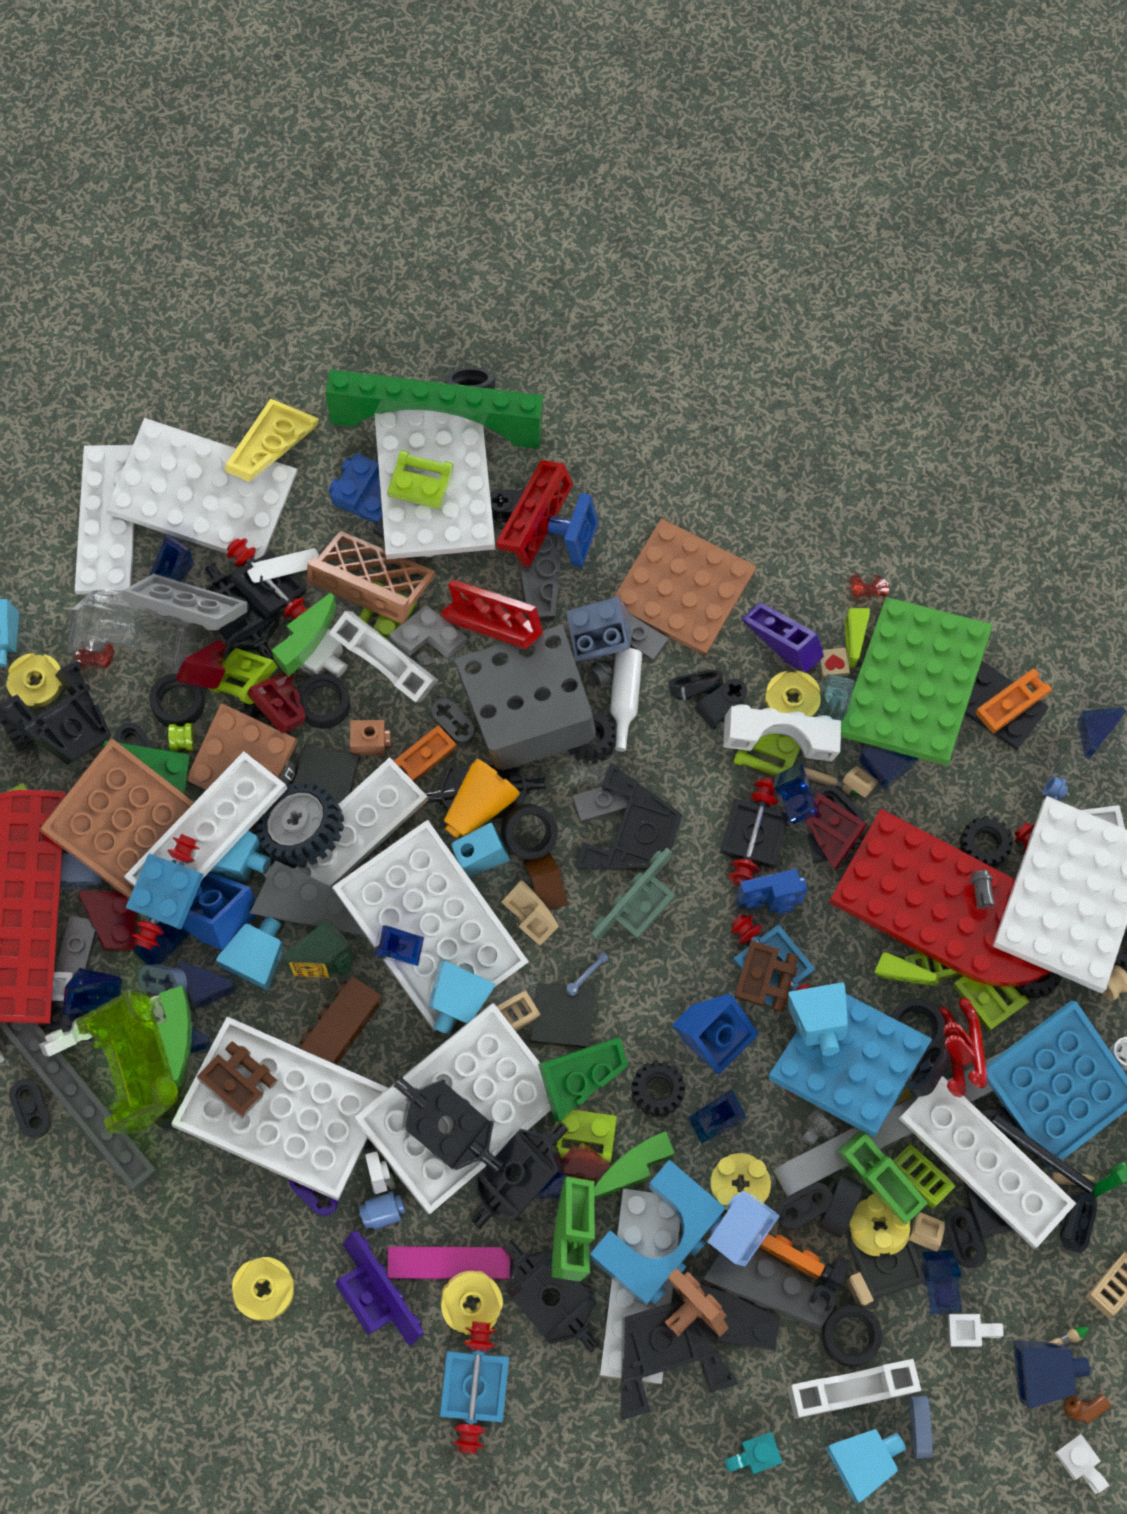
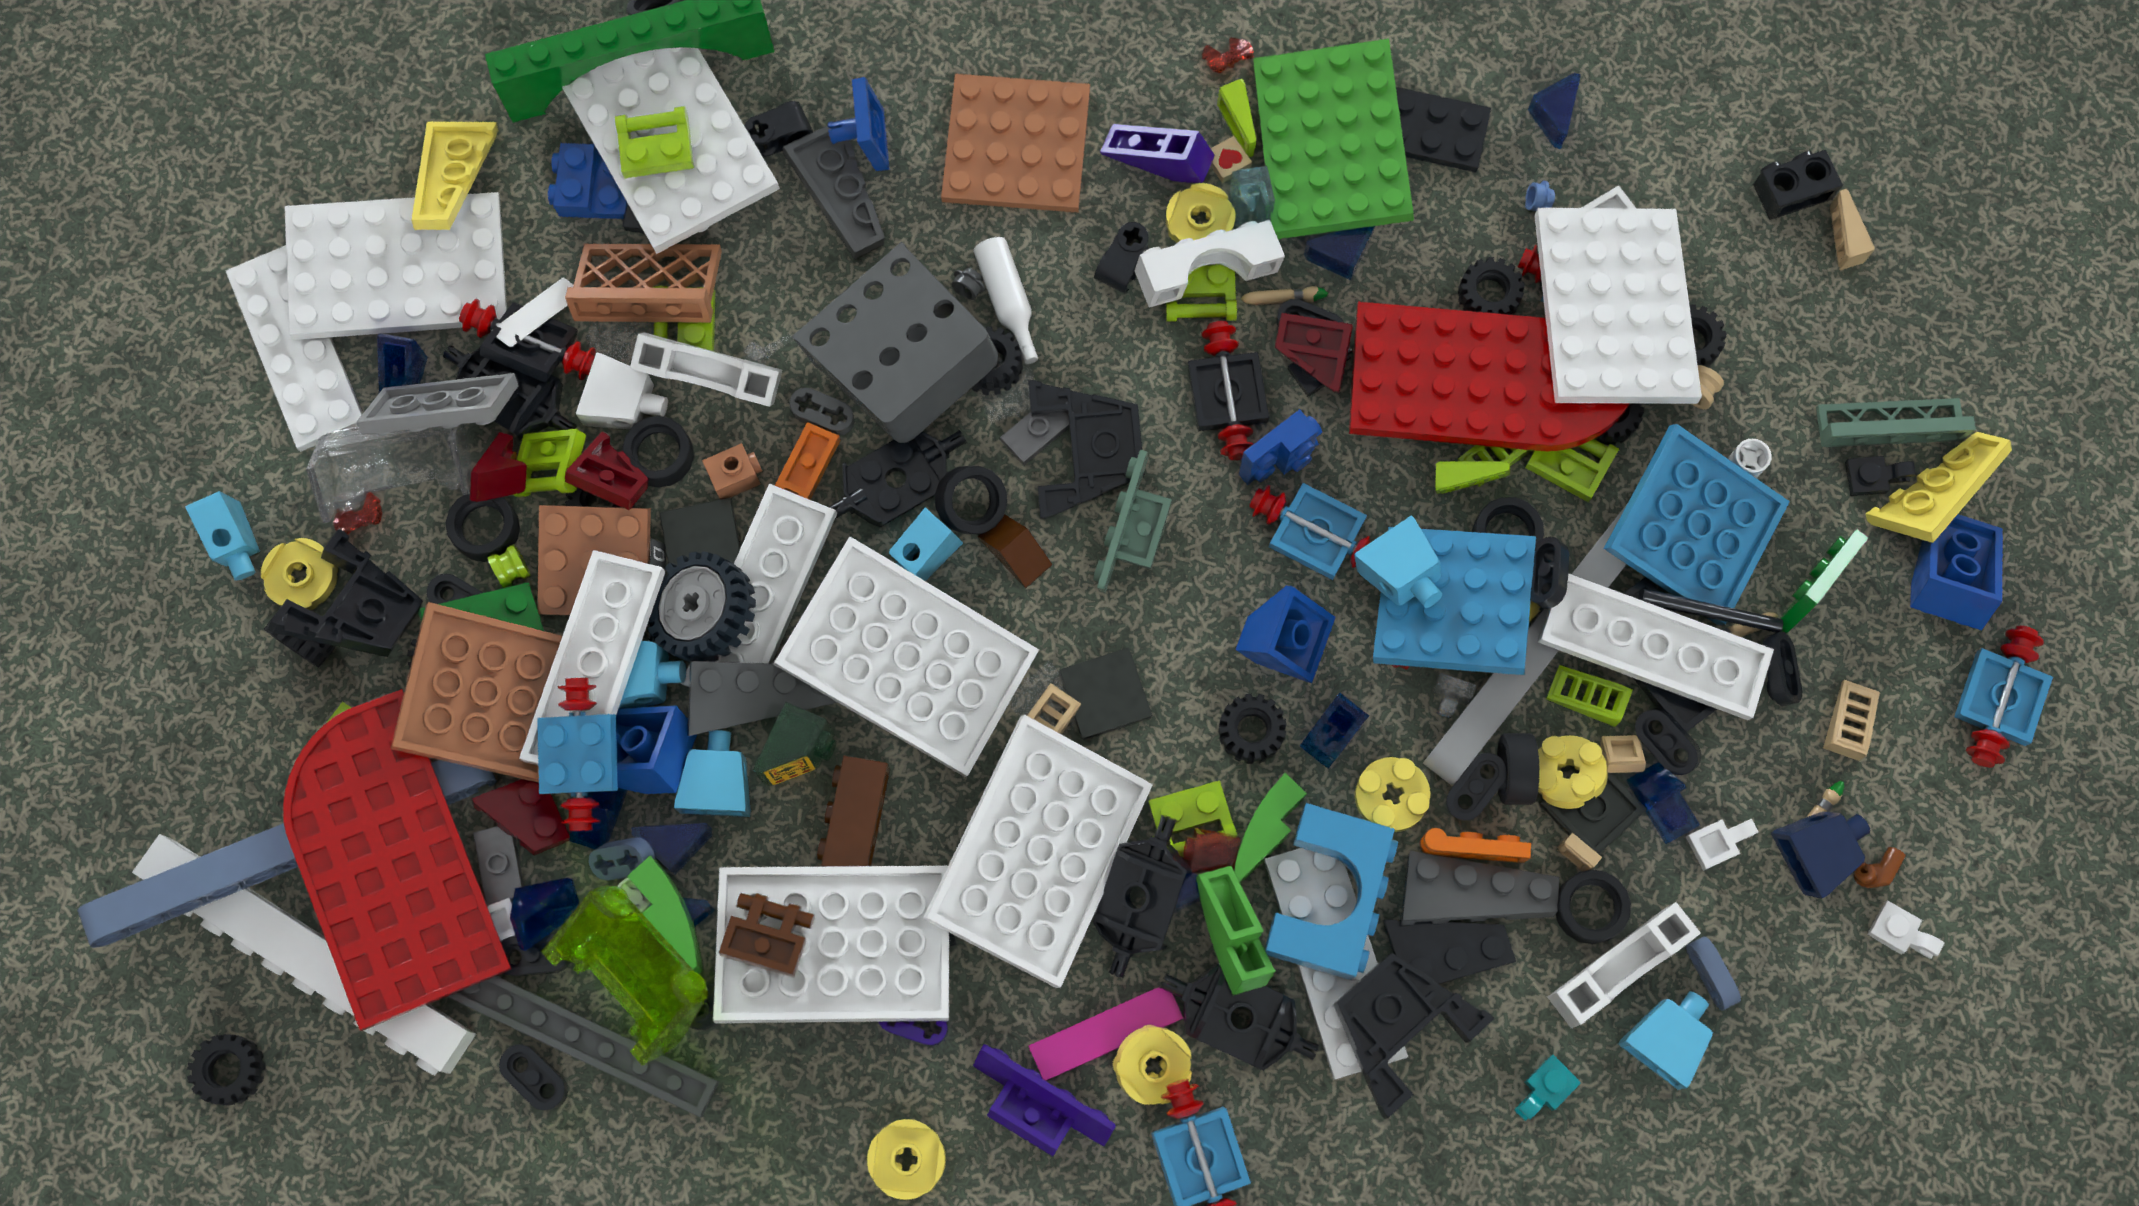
camera: 20 degrees left, 5 degrees up
(59, 1041) = (533, 984): white plate -> none
(305, 635) = (602, 383): bright green slope -> none
(379, 1173) = (981, 967): white plate -> none
(382, 1210) = (1002, 1008): medium blue brick -> none
(398, 946) = (882, 697): clear blue slope -> none
(427, 627) = (742, 314): light grey plate -> none
(457, 995) = (976, 724): medium azure torso -> none
(470, 1133) = (1066, 877): black plate -> none
(478, 800) = (897, 487): light orange cone -> none
(492, 620) = (817, 272): red fence -> none
(528, 907) = (1022, 594): tan slope -> none
(534, 510) = (804, 124): red fence -> none
(572, 988) = (1104, 658): sand blue hinge -> none
(580, 1073) = (1156, 751): green wing -> none
(599, 629) = (945, 231): sand blue slope -> none
(646, 639) = (990, 220): flat silver plate -> none
(692, 684) = (1076, 253): black plate -> none
(694, 1306) = (1410, 954): nougat plate -> none
(742, 1228) = (1423, 842): light blue brick -> none
(757, 973) = (1306, 547): reddish brown plate -> none
(796, 793) = (1256, 325): clear blue slope -> none
(832, 1279) = (1545, 856): black plate -> none
(860, 781) = (1320, 281): tan tile -> none
(882, 1176) = (1549, 715): bright green slope -> none
(964, 1049) = (1576, 531): red piece -> none
(983, 890) = (1516, 343): dark grey pin -> none
(1013, 701) = (1450, 117): orange plate -> none

